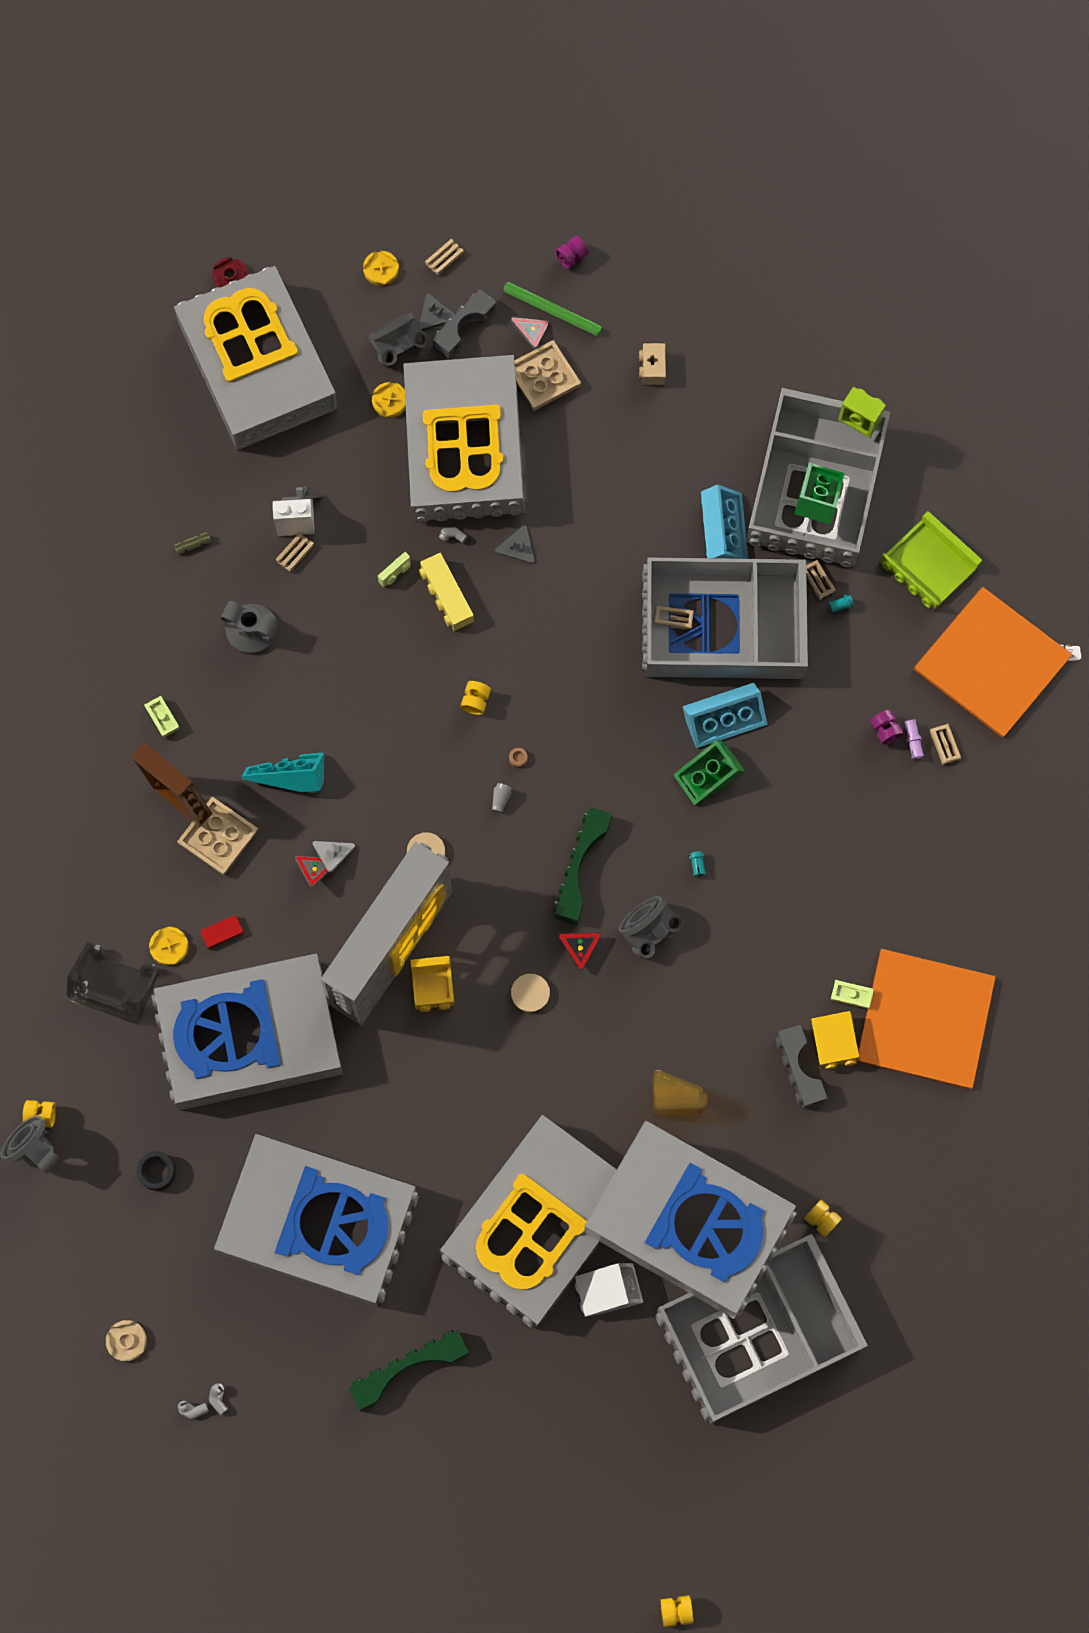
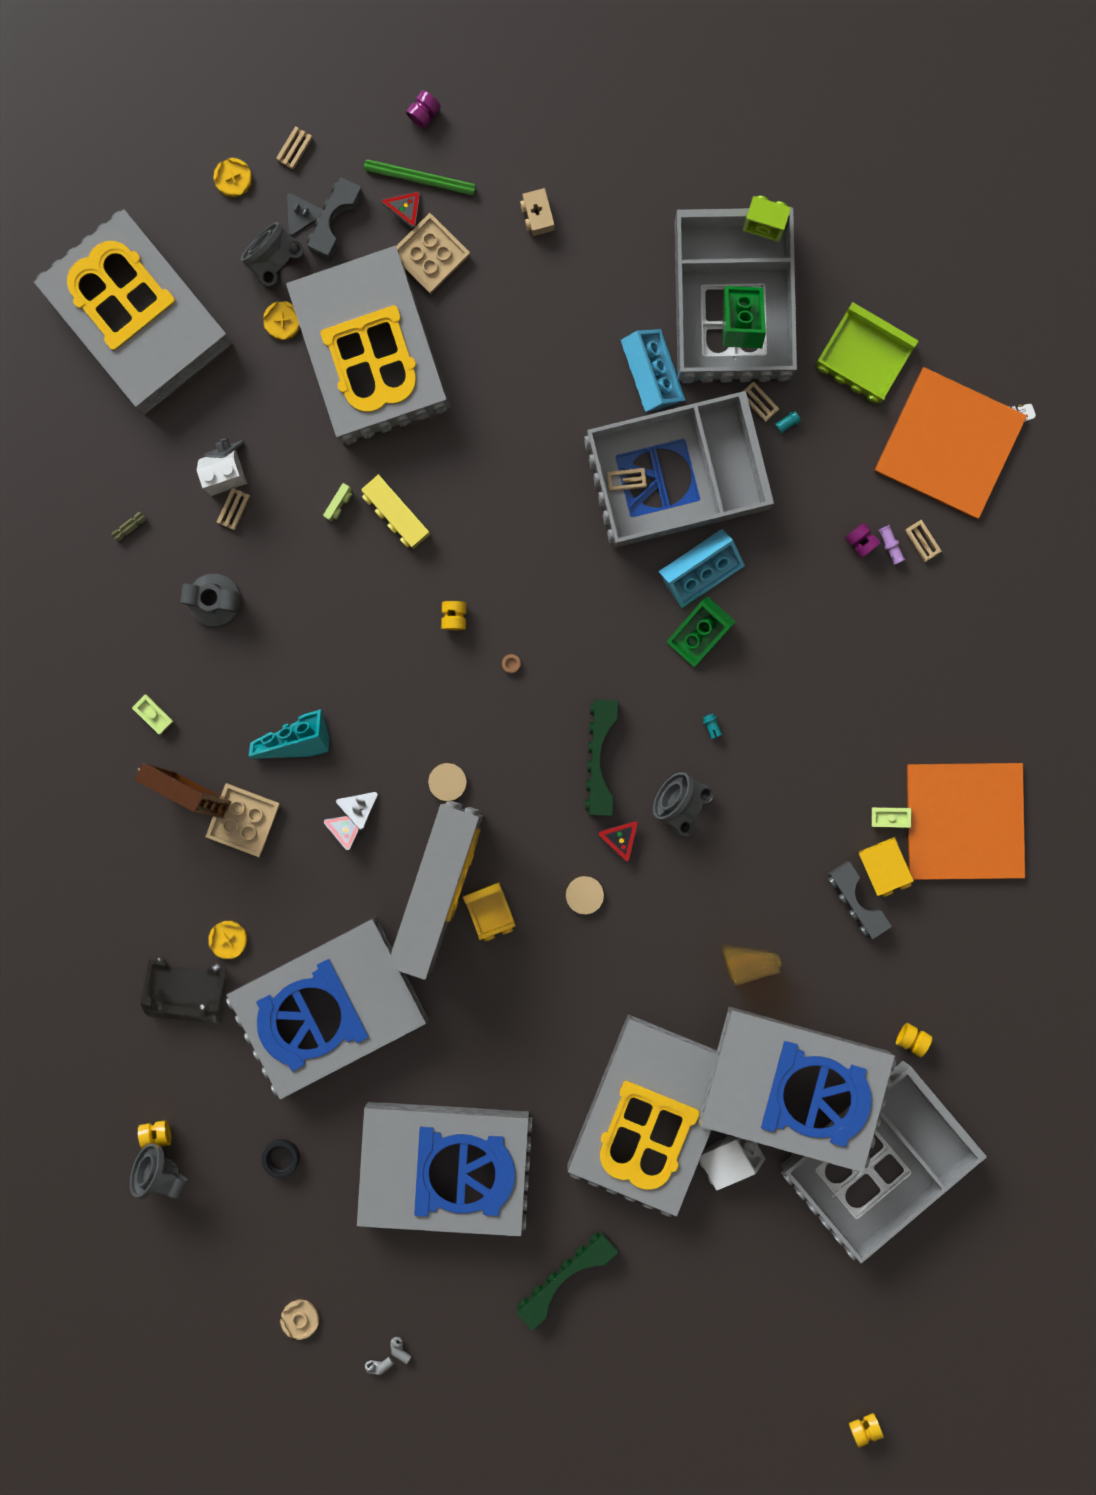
camera: 10 degrees left, 15 degrees up
(221, 931) = (274, 912): red tile -> none
(228, 265) = (71, 219): dark red tile -> none
(453, 532) = (383, 447): light grey arm -> none
(500, 797) = (505, 709): light grey cone -> none
(517, 546) = (452, 444): dark grey piece -> none

